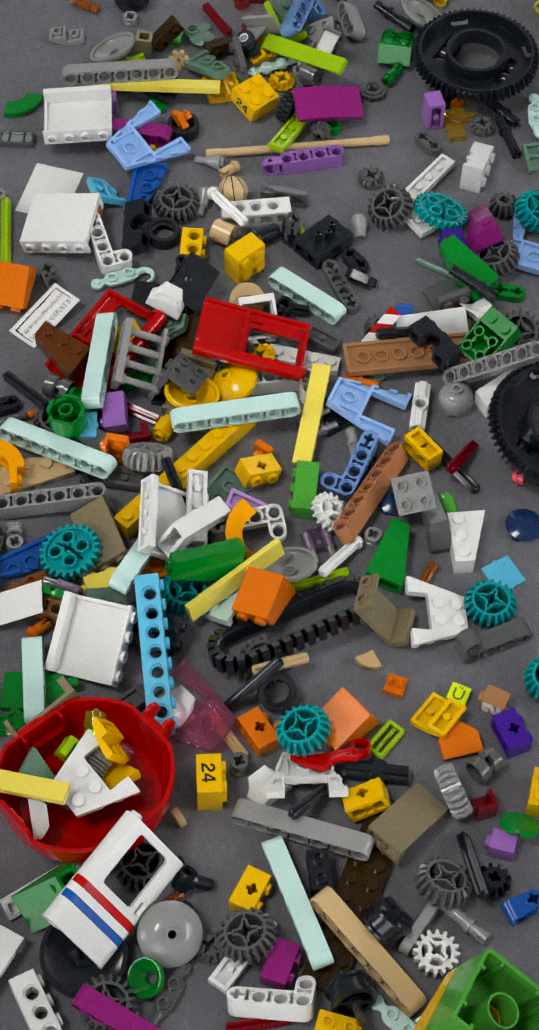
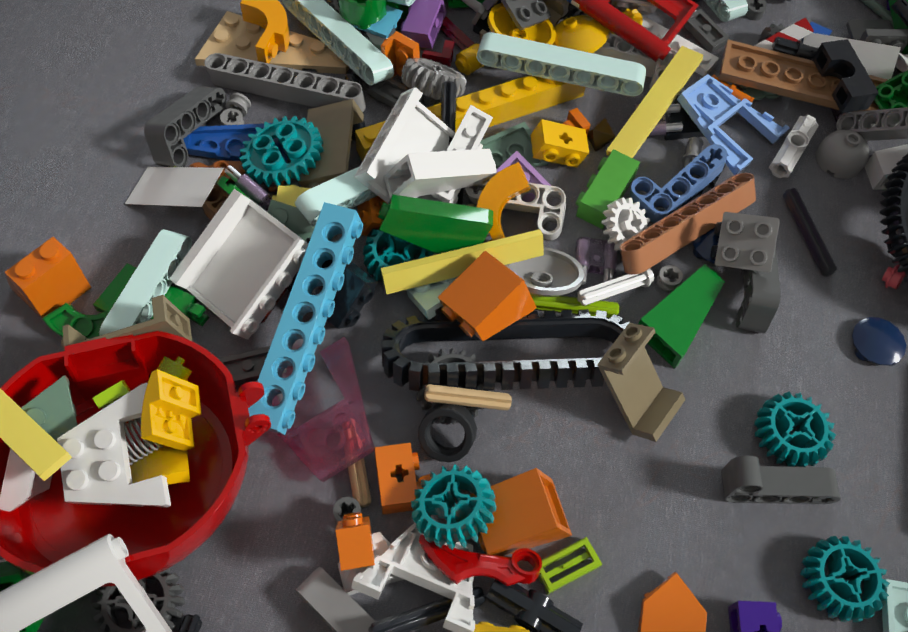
camera: 20 degrees right, 5 degrees up
(39, 628) = (194, 228): orange pin -> none
(178, 817) = (226, 556): tan tile -> none
(184, 704) = (317, 396): white slope -> none
(210, 782) = (290, 524): yellow brick -> none
(254, 683) = (418, 409): black axle -> none
(256, 770) = (355, 541): none -> orange brick
(282, 451) = (600, 134): none -> dark brown slope
(368, 660) = (593, 440): tan tile -> none
(395, 685) = (615, 491): orange tile -> none
(422, 449) = (779, 194): yellow brick -> none
(429, 572) = (718, 360): dark orange axle -> none
(437, 715) = (658, 563): yellow slope -> none
(444, 612) = (725, 418): white wing -> none
(448, 503) = (787, 278): bright green cone -> none
(459, 693) = (699, 542): neon yellow tile -> none
(461, 457) = (826, 224): dark red axle -> none
(464, 539) = (791, 329): white wedge -> none
(493, 700) = (747, 575): medium nougat brick -> none
(505, 571) = (829, 391): medium azure piece -> none

